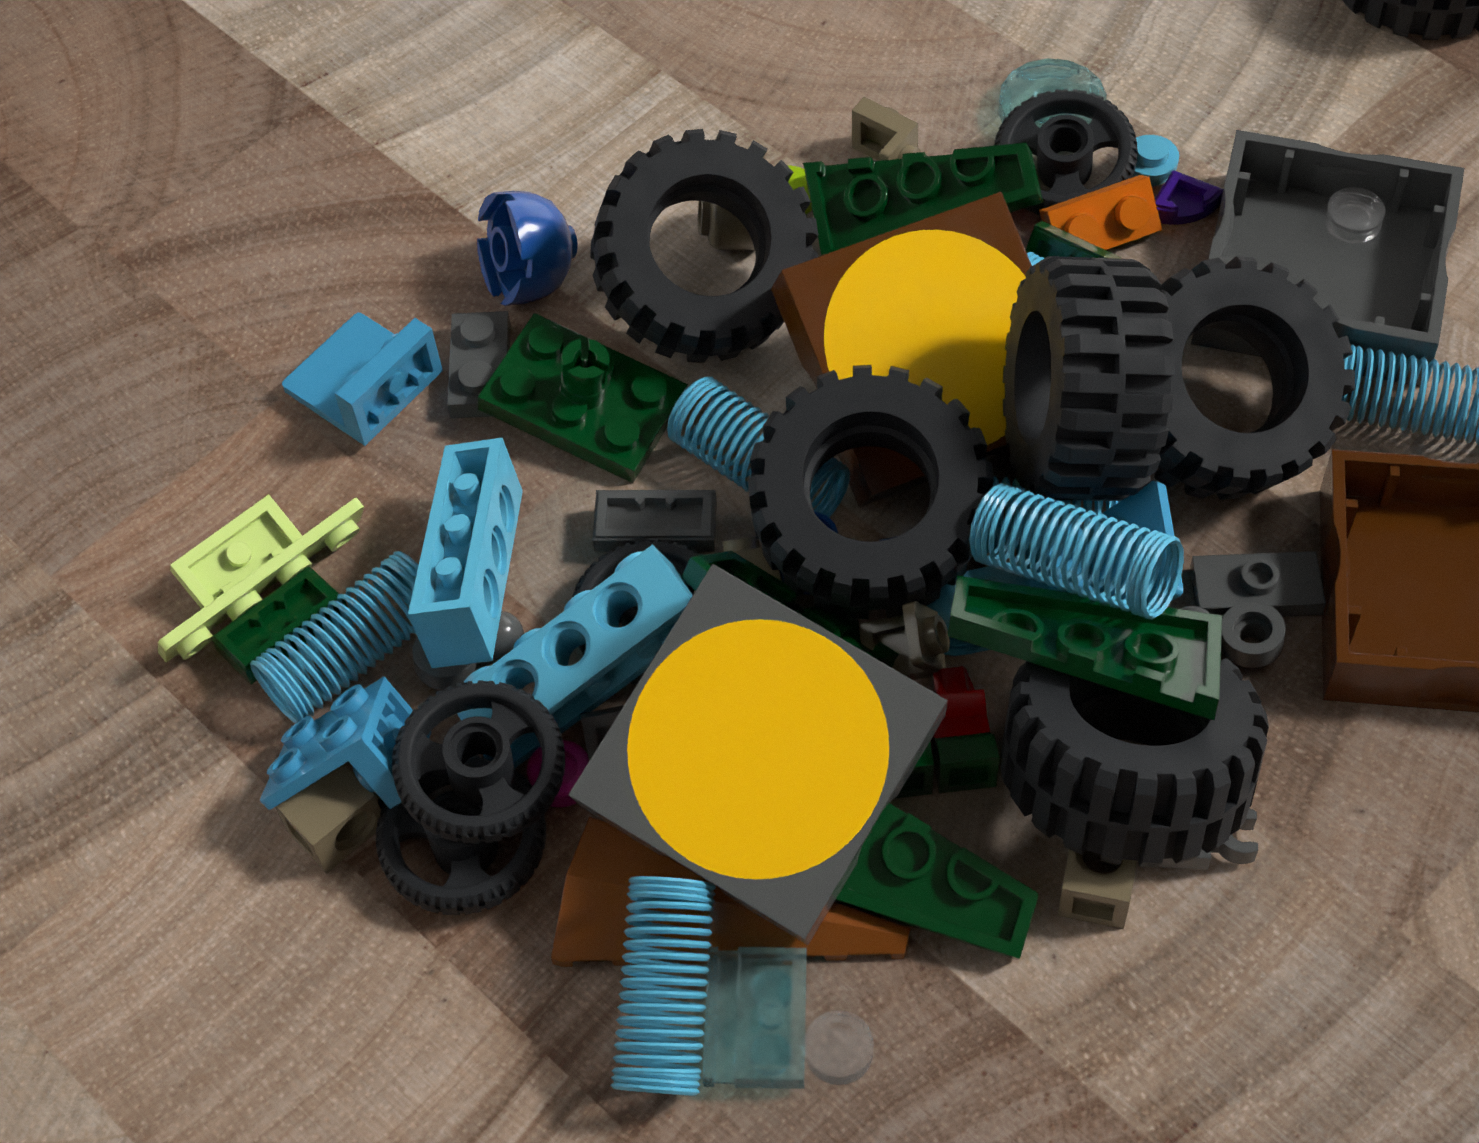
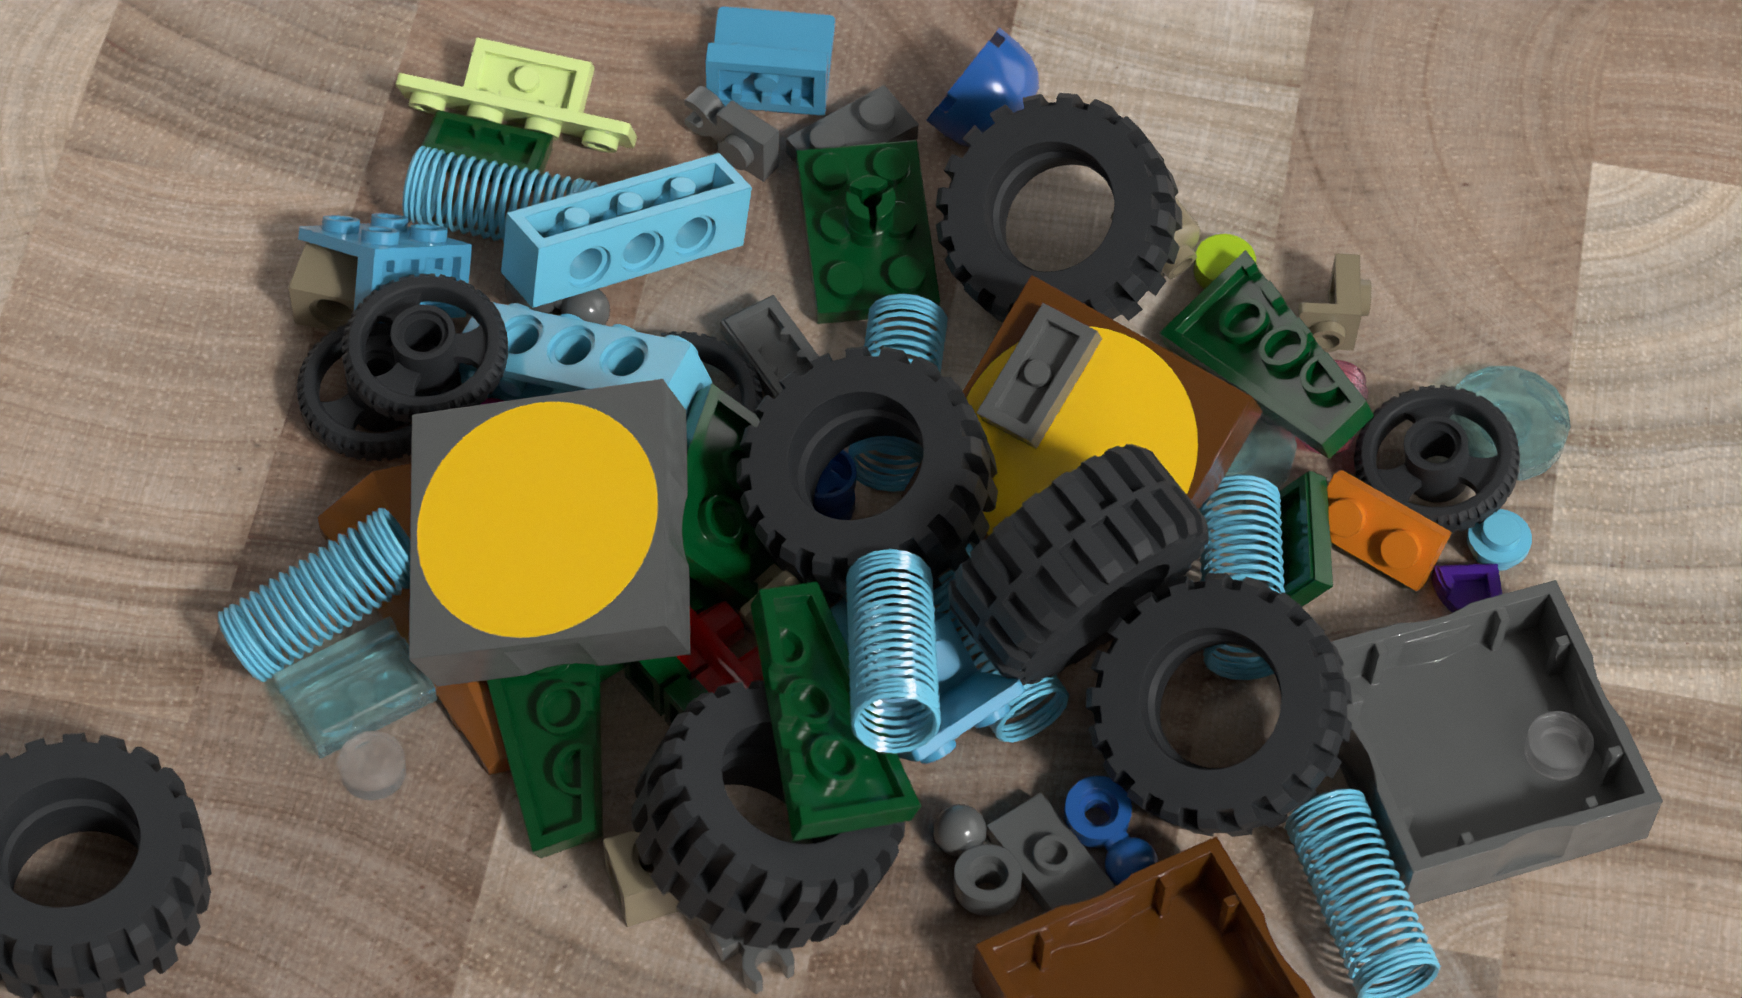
camera: 50 degrees right, 0 degrees up
(419, 434) = (740, 135): none -> dark grey plate
(868, 316) = (1039, 375): none -> dark grey plate
(1287, 531) = (1124, 852): none -> blue plate

